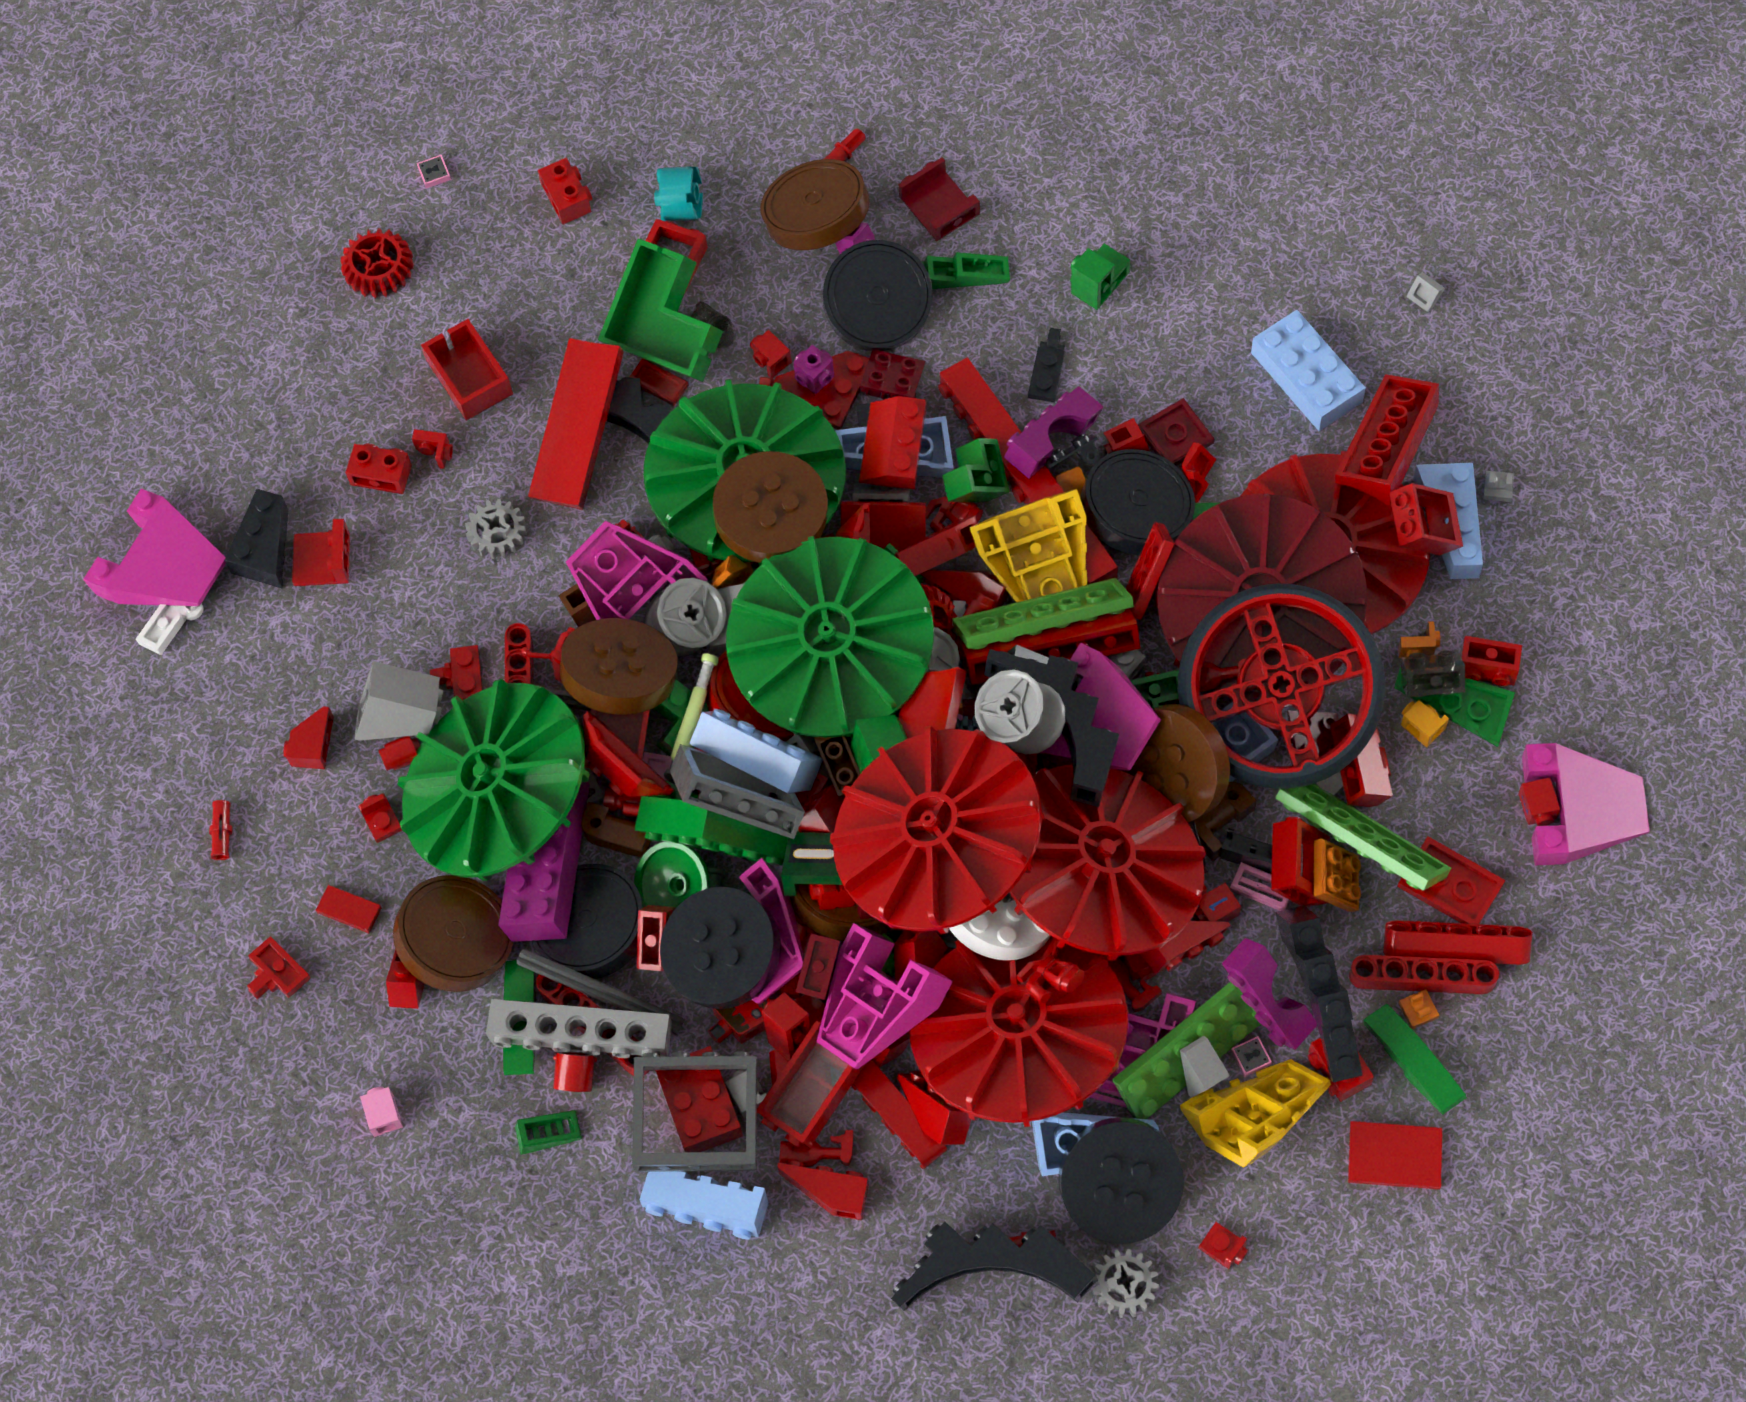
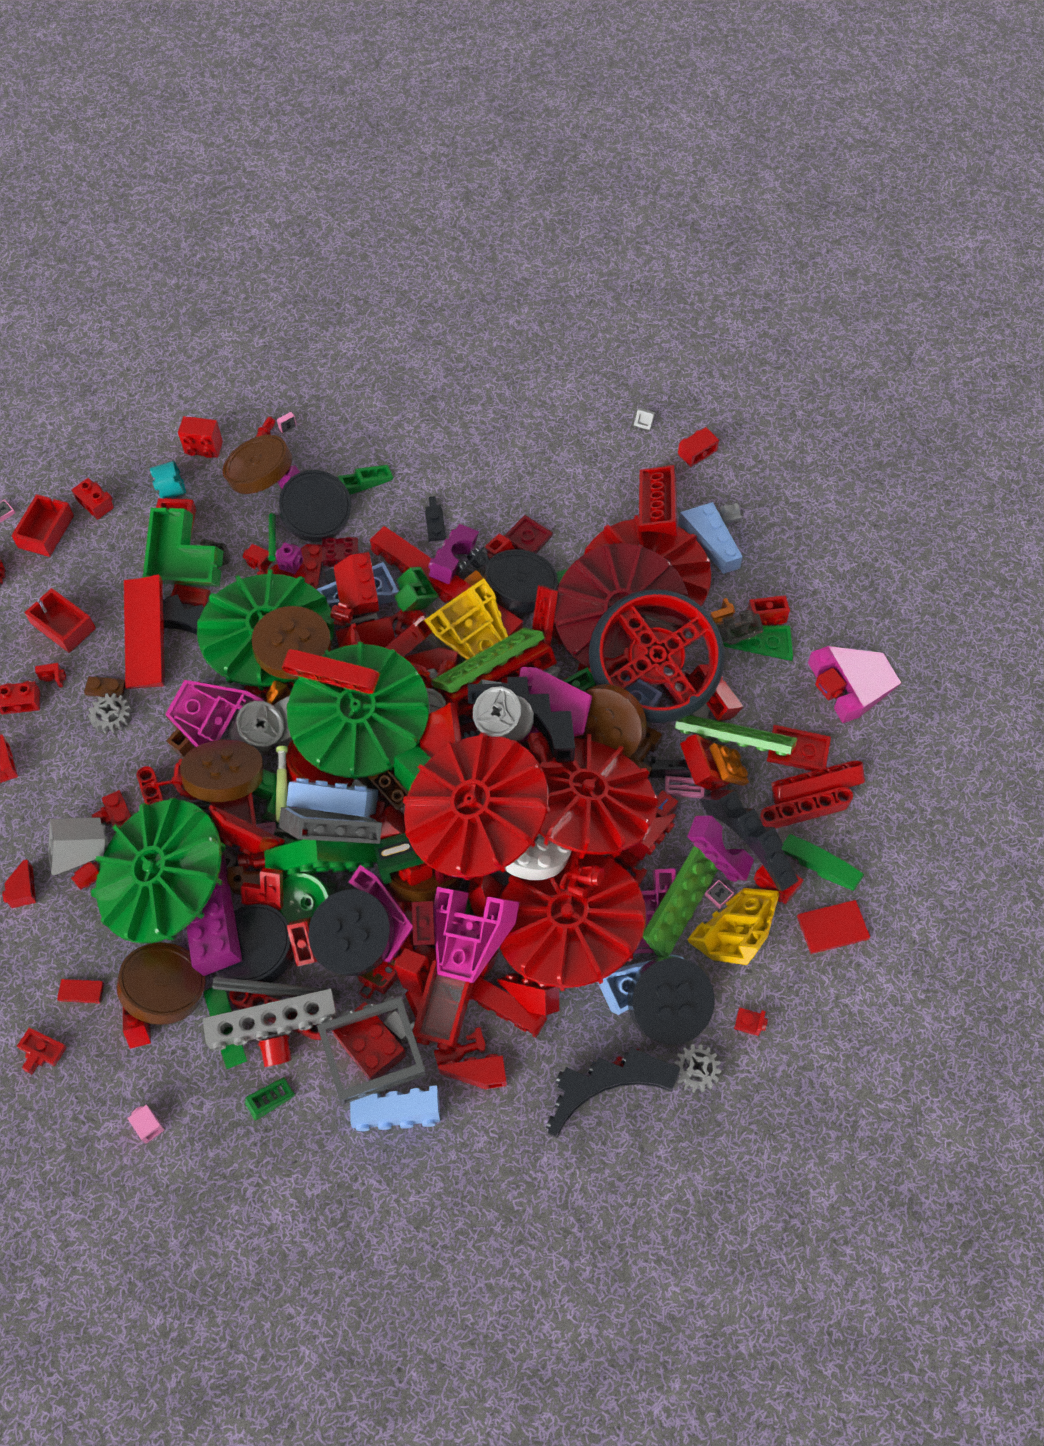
camera: 25 degrees left, 5 degrees down
(379, 817) = (84, 922): red bracket -> none
(483, 214) = (42, 526): none -> red piece
(501, 486) = (100, 686): none -> reddish brown plate
(630, 854) = (268, 892): none -> red plate
(746, 136) = (200, 437): none -> red brick
(800, 327) = (272, 537): none -> green bar
(806, 572) = (330, 671): none -> red beam
(857, 482) = (341, 614): none -> red gear
(880, 145) = (286, 422): none -> tile
(937, 200) = (332, 445): dark red panel -> none
(1057, 773) = (540, 747): none -> red piece
(1098, 274) = (446, 459): green brick -> none
(1196, 467) = (548, 550): red slope -> none
(1201, 1066) = (694, 909): light grey slope -> none
(1308, 370) = (593, 479): light blue brick -> none
(1418, 1009) = (810, 831): orange tile -> none
(1423, 722) = (742, 659): light orange brick -> none
(1438, 507) = (702, 543): red window -> none
(1489, 363) = (698, 446): none -> red brick

